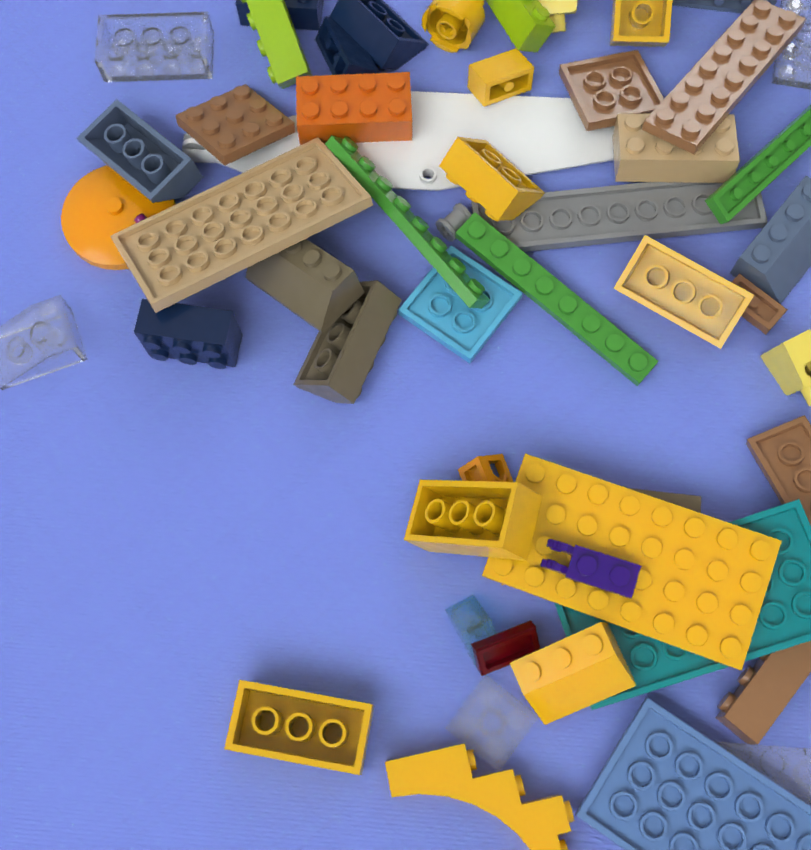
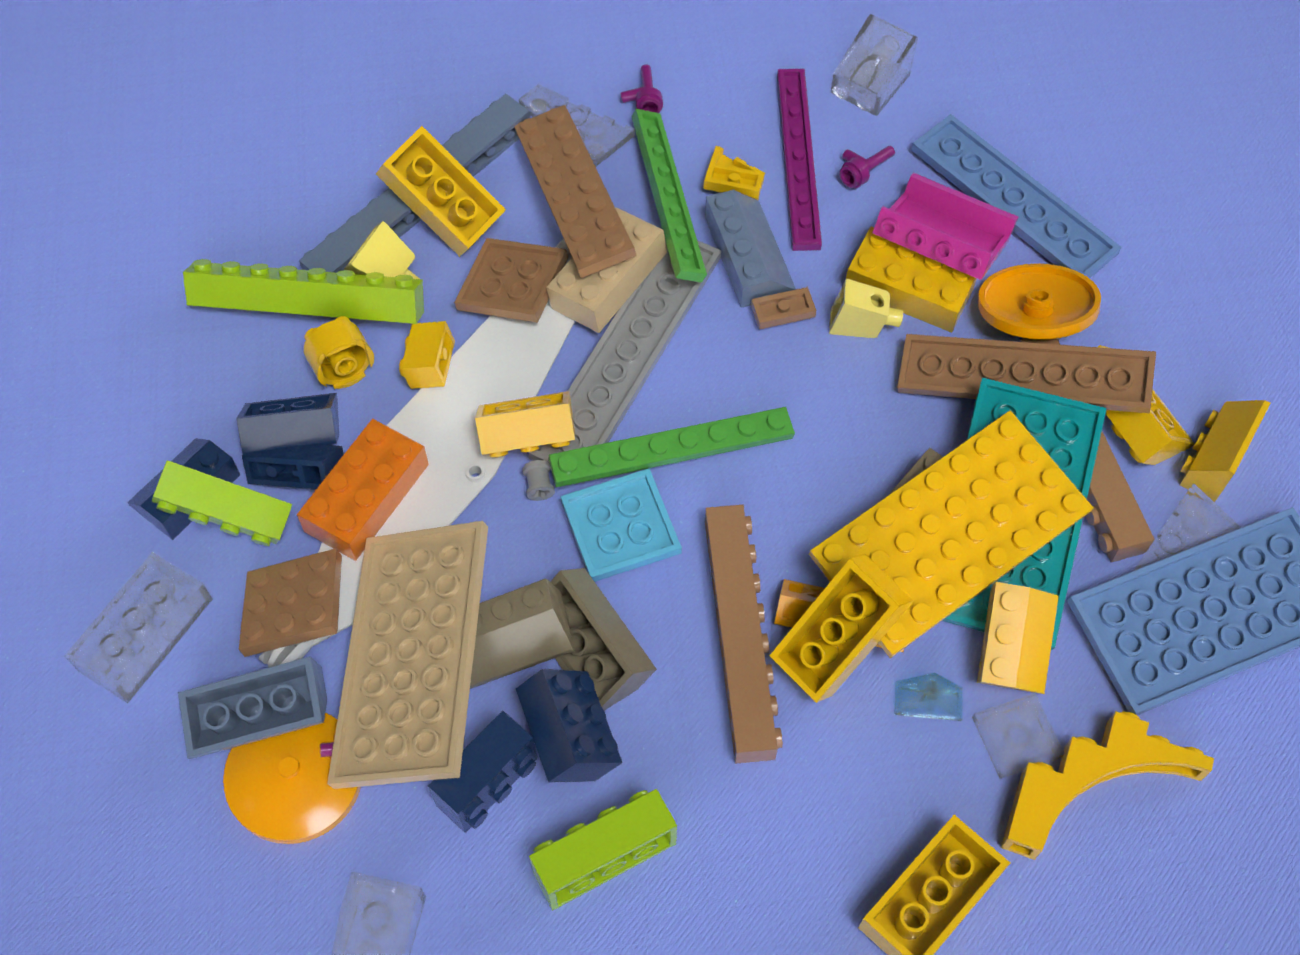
camera: 60 degrees left, 10 degrees down
(181, 452) = (603, 848): none -> lime brick
(261, 367) = (568, 726): none -> dark blue brick
(412, 226) = (527, 511): bright green plate -> none
(429, 447) = (740, 635): none -> medium nougat brick
(505, 647) = (962, 681): dark red tile -> none
(595, 569) = (948, 558): dark purple hinge -> none
(683, 291) = (742, 346): yellow brick -> none

